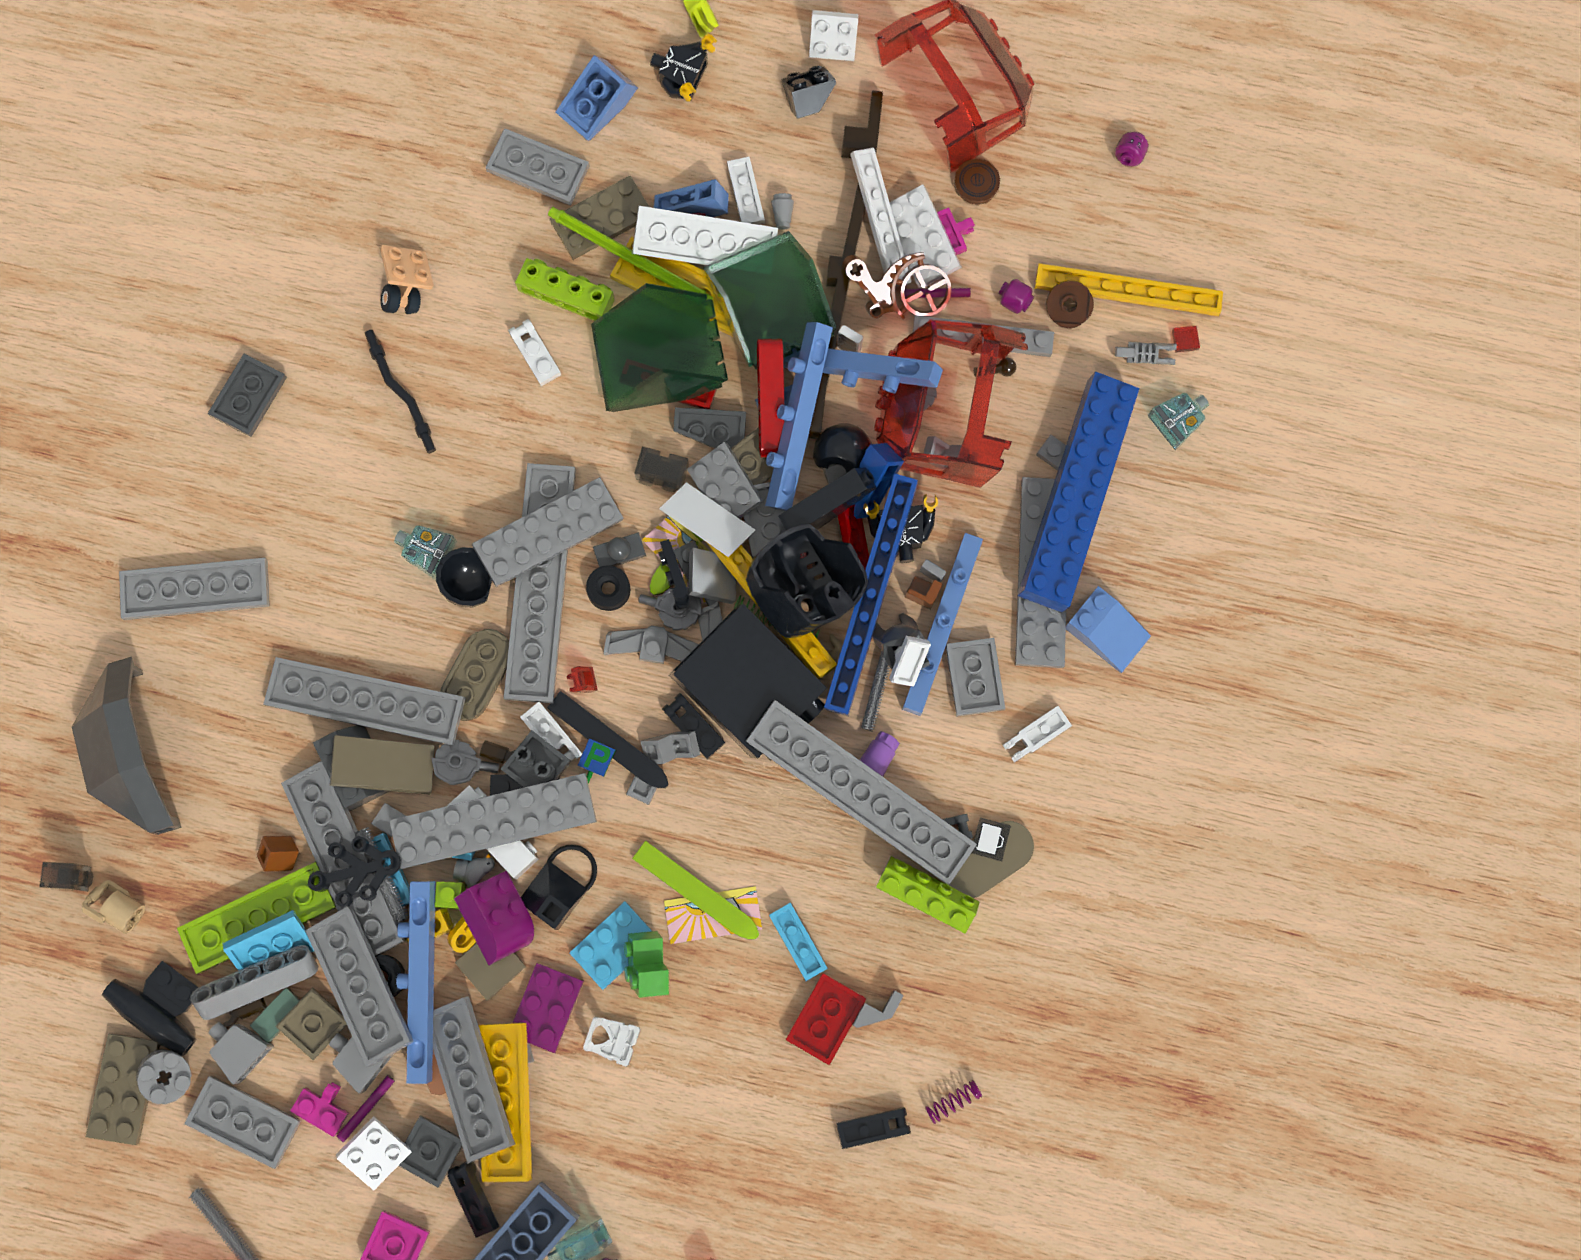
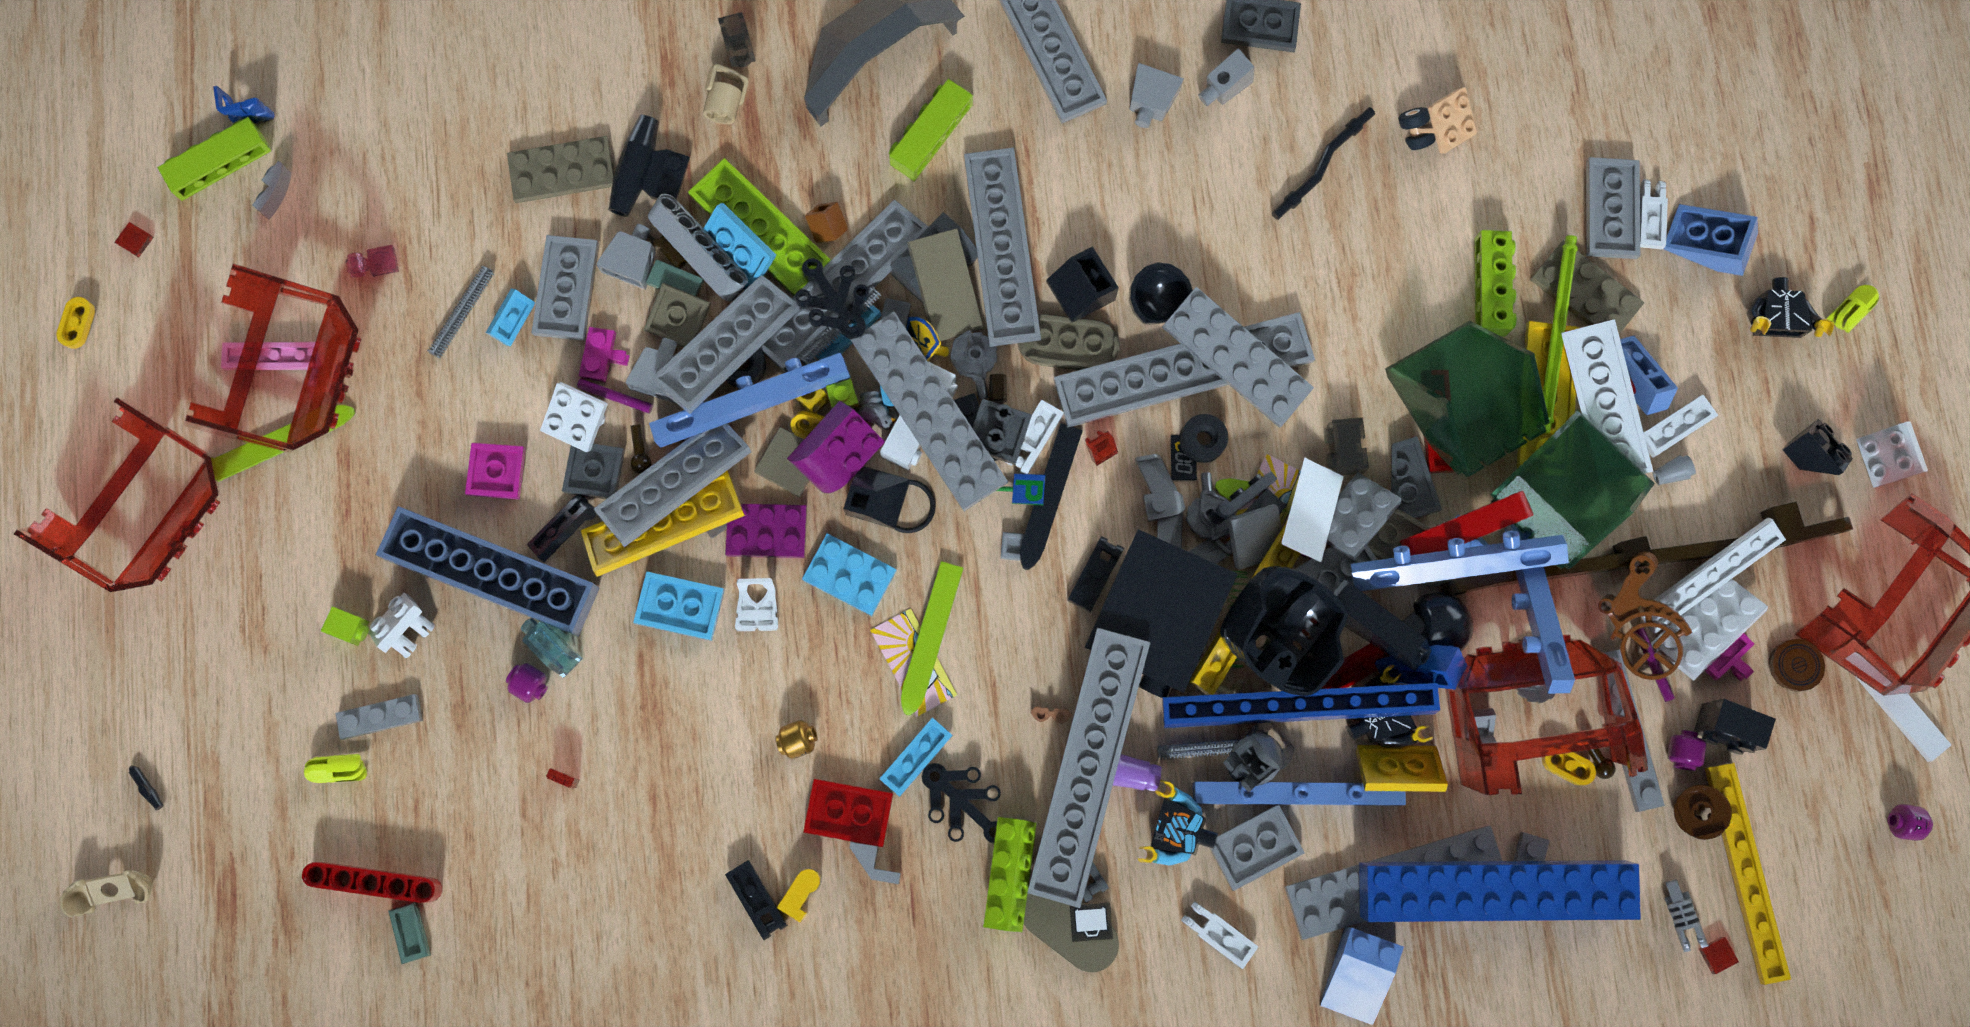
camera: 70 degrees right, 0 degrees up
(177, 1082) = (567, 198): light grey brick -> none
(227, 726) = (930, 130): none -> lime brick
(251, 1184) = (510, 317): none -> medium azure plate
(275, 515) = (1153, 94): none -> light grey torso
(286, 435) = (1228, 79): none -> light grey torso
(423, 800) = (925, 337): none -> shield
(425, 548) = (1175, 245): torso -> none
(429, 642) = (1083, 285): none -> black slope
(437, 1104) = (640, 461): none -> dark brown bar
(535, 353) = (1416, 278): white plate -> none
(557, 136) = (1653, 215): none -> white hinge
(586, 1112) = (679, 606): none -> medium azure plate
(620, 550) = (1246, 436): dark grey tile -> none
(625, 616) = (1181, 466): none -> black sticker
(645, 966) = (836, 613): bright green brick -> none
(671, 746) = (1066, 558): light grey slope -> none
(745, 1043) = (796, 739): none -> pearl gold head
(798, 815) = (1058, 715): none -> nougat piece
(847, 917) = (958, 798): none -> black plant
(849, 340) = (1562, 588): tile -> none
(875, 1079) = (798, 893): none -> yellow leg
(909, 660) = (1244, 768): white tile -> none
(923, 592) = (1324, 761): dark orange panel -> none
(932, 571) = (1350, 764): light grey tile -> none
(938, 736) = (1178, 829): none -> torso
(952, 530) = (1401, 768): none -> yellow plate
(975, 1091) = (824, 998): magenta piece -> none
(999, 397) = (1567, 768): none -> yellow plate
(1010, 251) = (1734, 726): none -> black brick
(1046, 115) = (1904, 714): none -> white tile
(1179, 417) = (1626, 976): torso -> none

